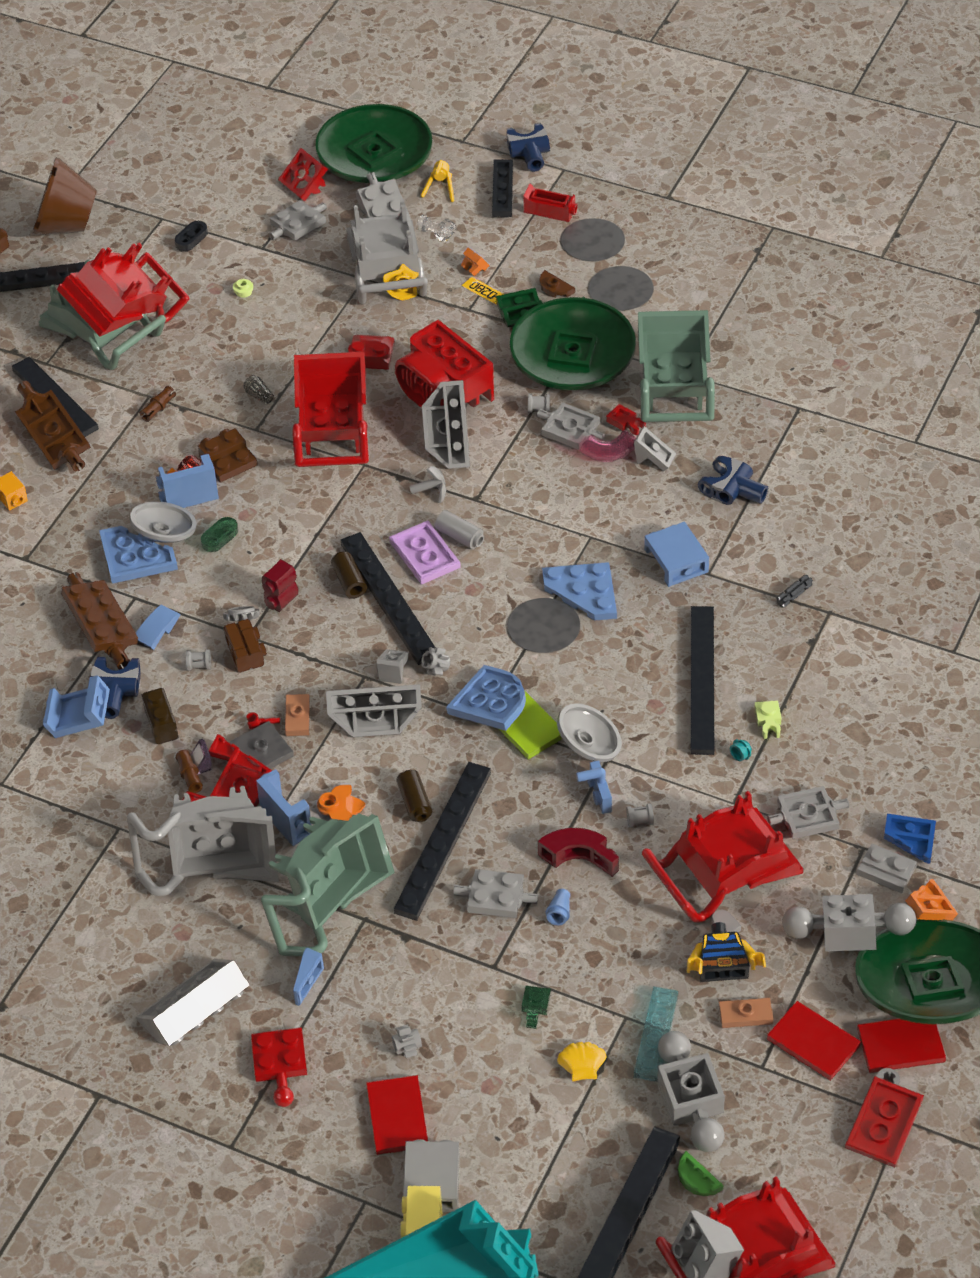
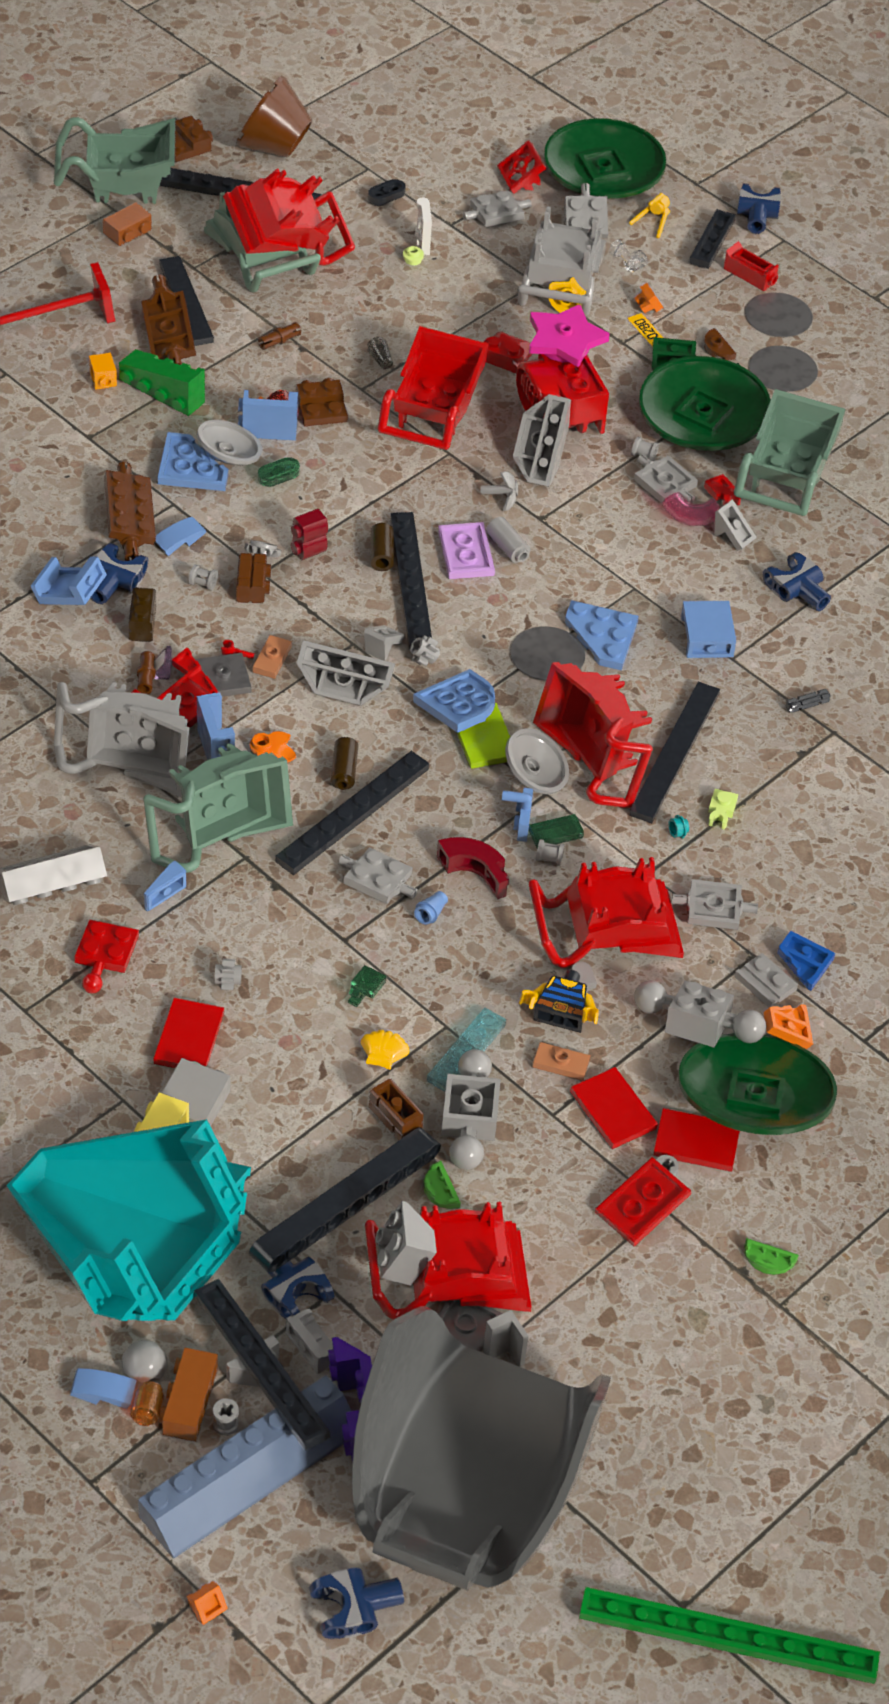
camera: 15 degrees right, 0 degrees up
(73, 481) = (164, 380): none -> green wedge
(243, 257) = (424, 225): none -> white plate
(430, 321) = (565, 335): none -> dark pink plate
(625, 1118) = (395, 1109): none -> reddish brown brick
(627, 680) = (593, 724): none -> red piece
(634, 792) = (557, 830): none -> clear green tile

